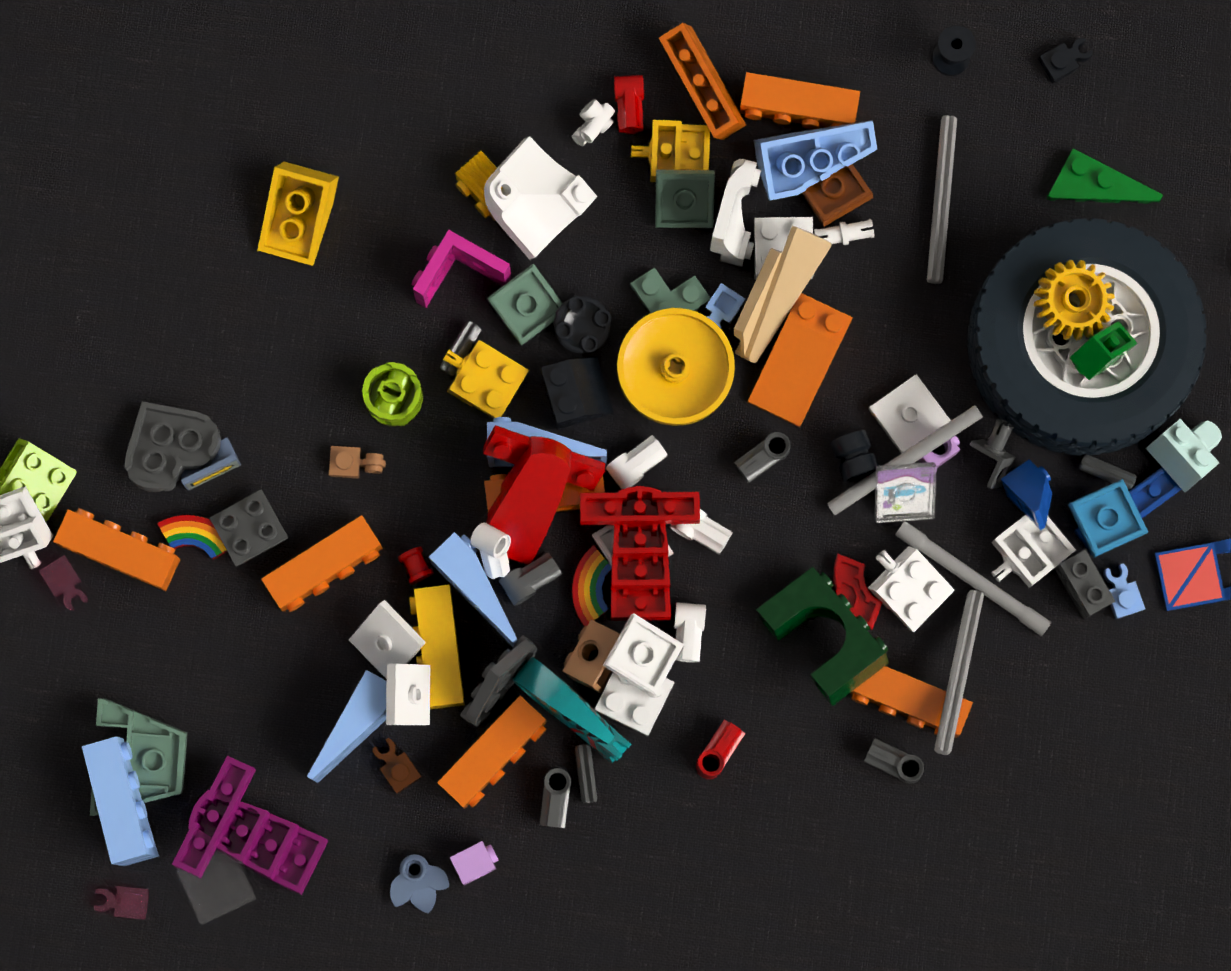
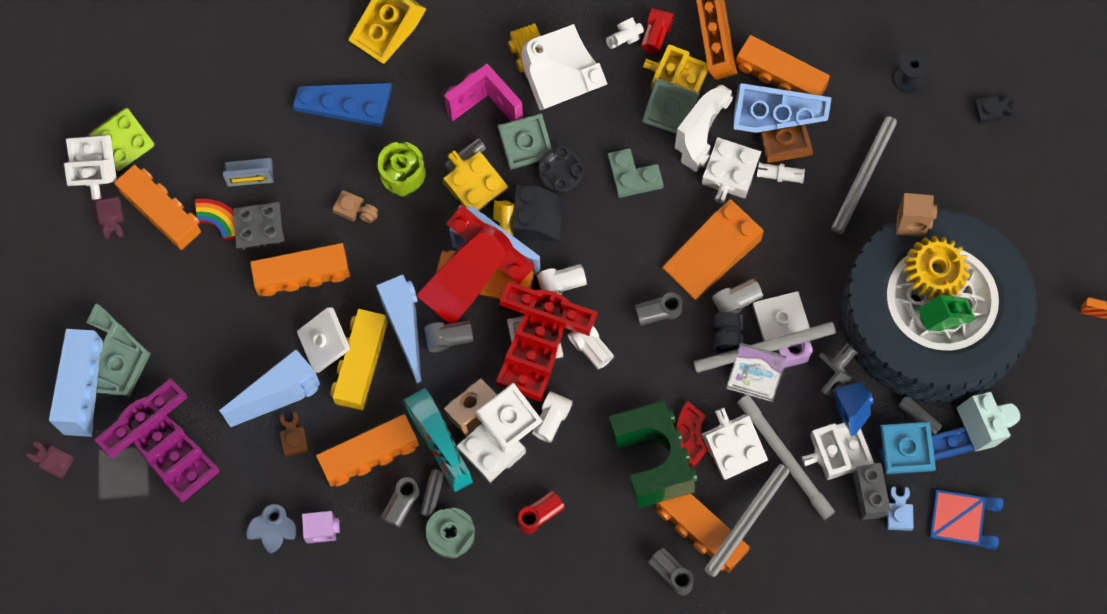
camera: 25 degrees right, 10 degrees down
(168, 443) = (225, 146): dark grey plate -> none
(293, 330) = (346, 102): none -> blue wing
(408, 694) = (319, 379): white plate -> none
(415, 565) = (368, 295): red bush -> none
(493, 549) = (427, 299): white piece -> none
(497, 681) = (389, 396): dark grey plate -> none
(538, 406) = (504, 215): none -> yellow piece
(588, 586) = (490, 356): tile -> none
(617, 796) = (447, 519): none -> sand green plate
(675, 366) = (617, 221): yellow dish -> none
(724, 305) = (670, 192): light blue plate -> none
(777, 290) = (713, 191): tan wedge -> none
(845, 413) = (735, 299): none -> light grey piece
(1029, 246) = (915, 215): none -> medium nougat brick
(1089, 179) = (984, 200): green wing -> none

